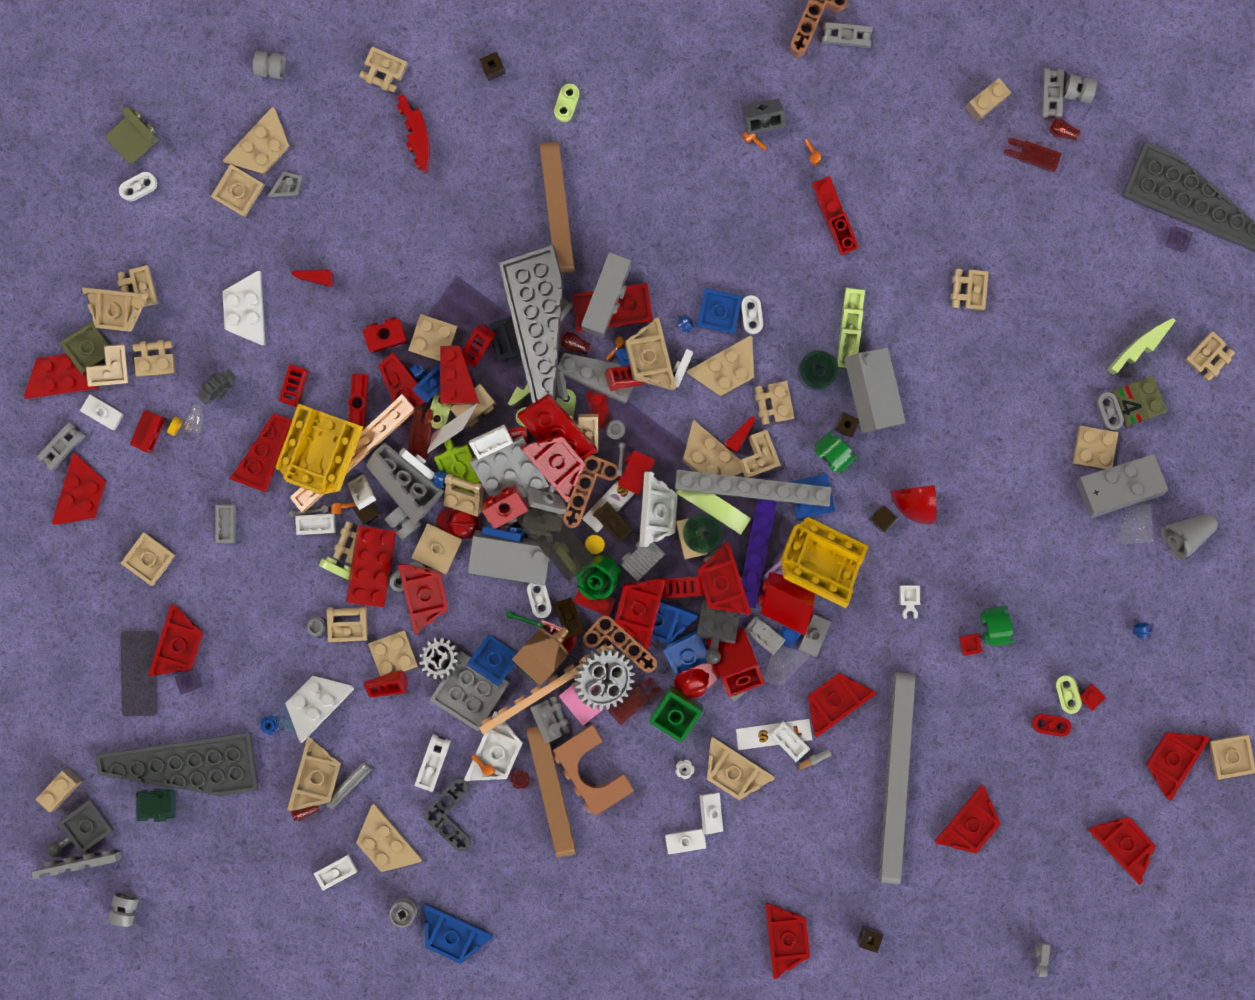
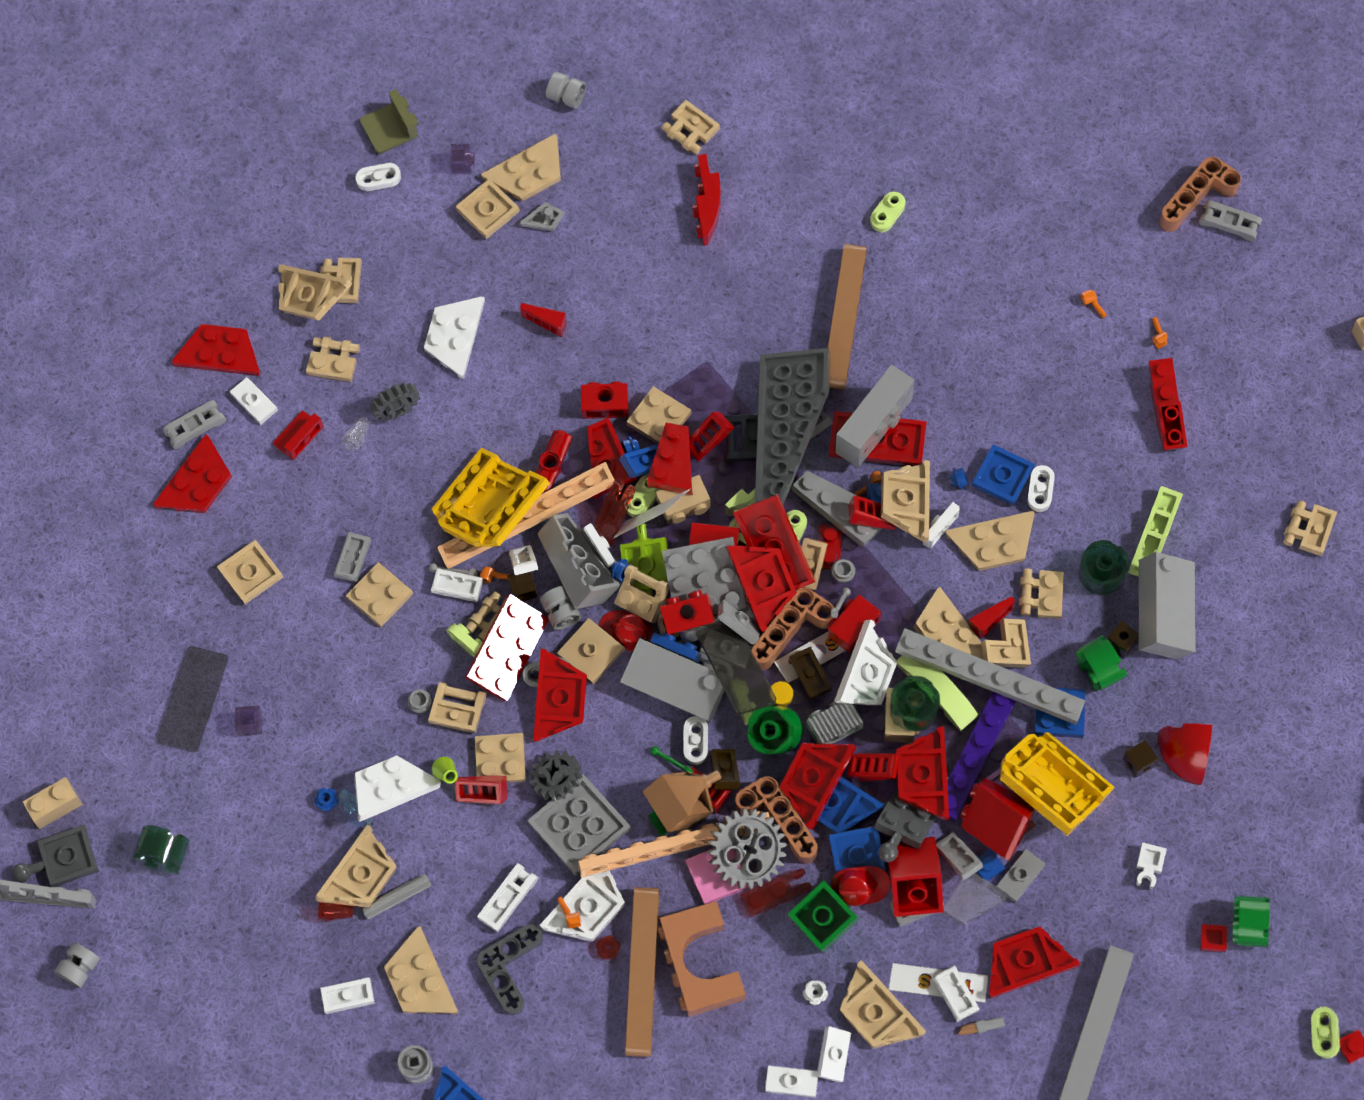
camera: 25 degrees right, 20 degrees down
(85, 347) = (261, 327): olive plate -> none
(113, 372) = (284, 357): tan plate -> none
(175, 426) = (331, 435): yellow tile -> none
(177, 644) = (249, 676): red wing -> none
(202, 151) = (462, 159): none -> clear purple plate
(204, 765) = (233, 824): dark grey wing -> none
(256, 548) = (379, 594): none -> tan plate
(260, 461) = (415, 501): red wing -> none
(302, 381) = (485, 409): red slope -> none
(353, 677) = (445, 770): none -> lime cone
(491, 442) = (693, 532): white plate -> none
(492, 660) = (618, 793): blue plate -> none
(494, 72) = (814, 152): dark brown piece -> none
(546, 721) = (661, 881): light grey plate -> none
(560, 390) = (792, 502): light grey piece -> none
(575, 343) = (823, 465): clear red cone -> none
(601, 606) = (761, 763): red plate -> none
(763, 116) = (1111, 278): dark grey brick -> none
(1050, 725) = (1294, 1064): red plate -> none

